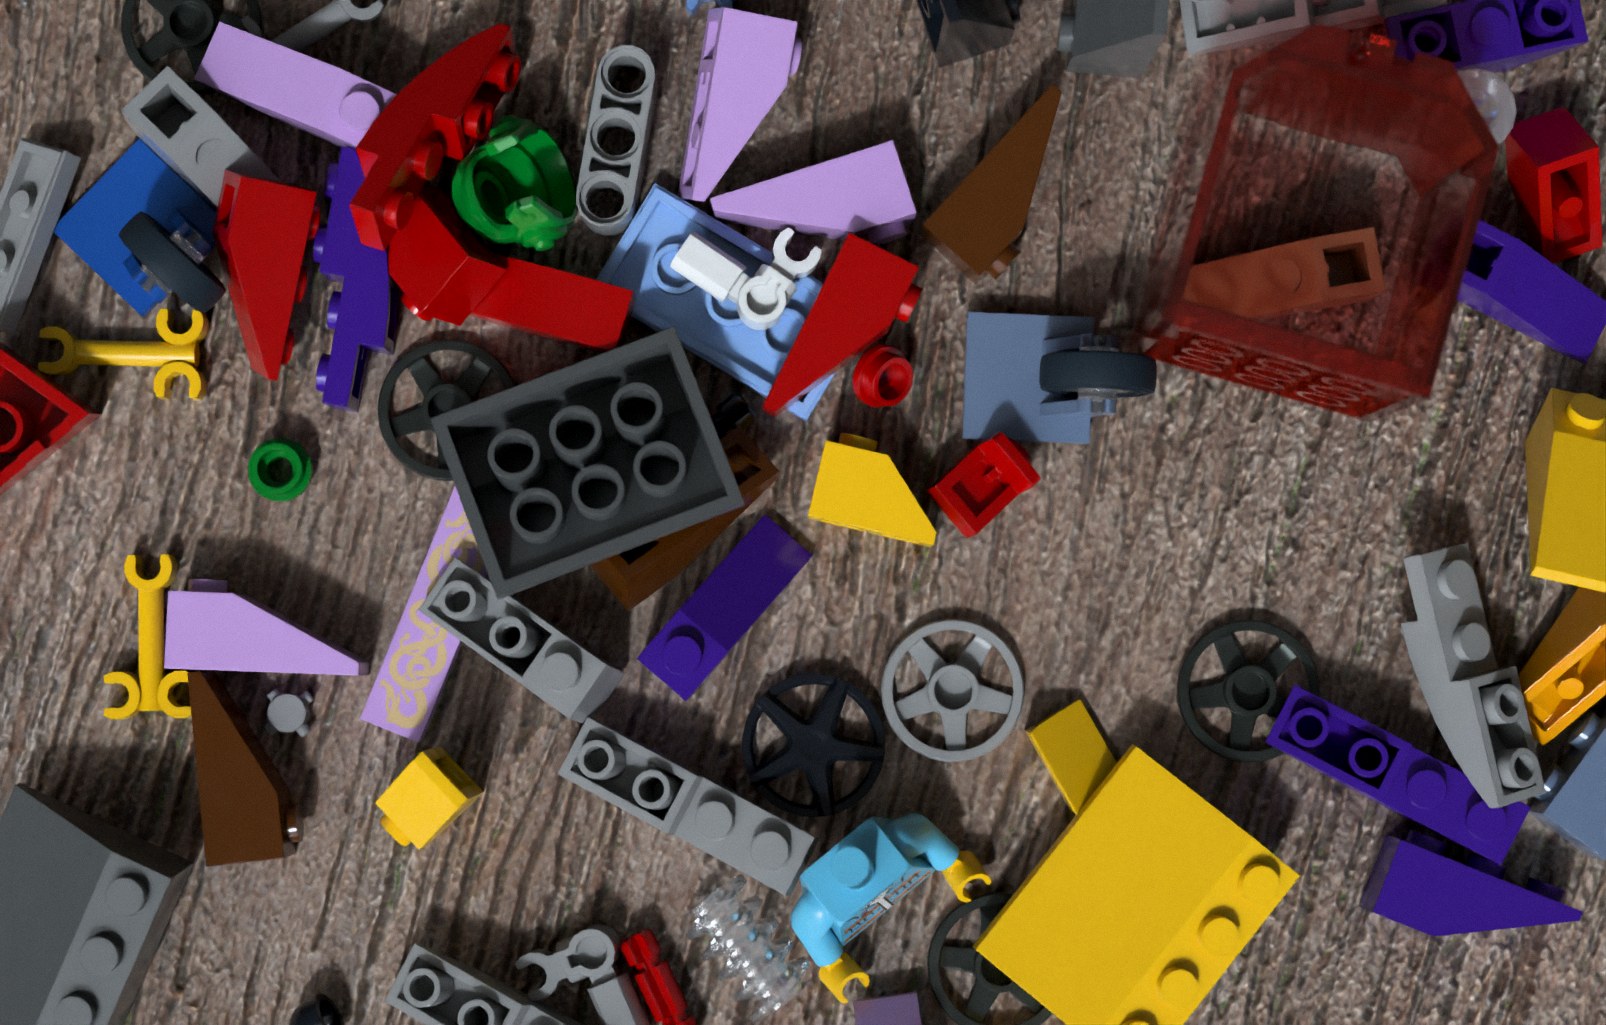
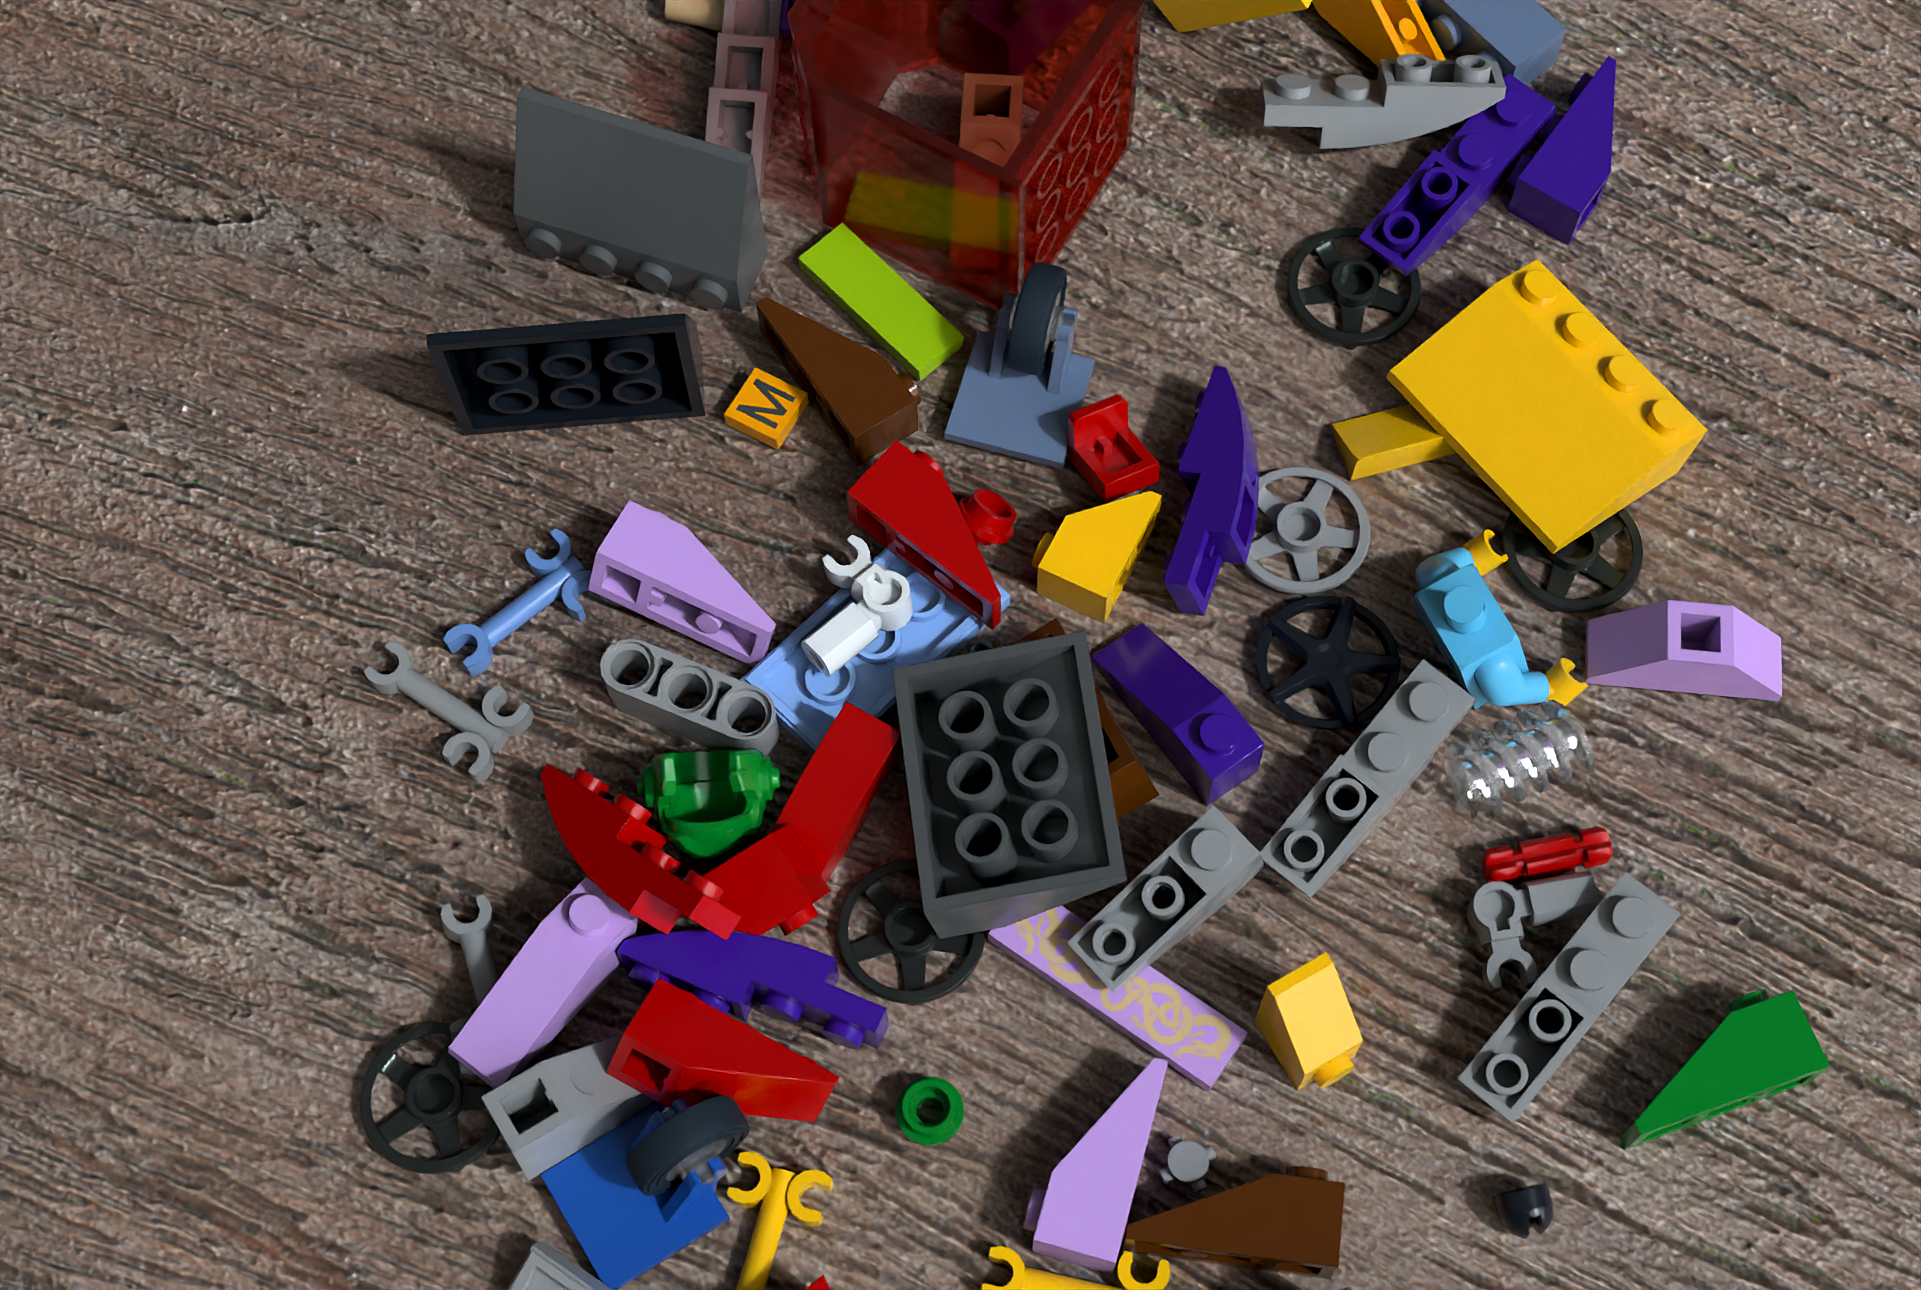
camera: 75 degrees left, 20 degrees down
(845, 195) = (805, 522): lavender slope -> none
(956, 126) = (766, 408): none -> light orange tile
(989, 602) = (1223, 484): none -> dark purple slope
(1107, 208) = (881, 302): none -> lime tile

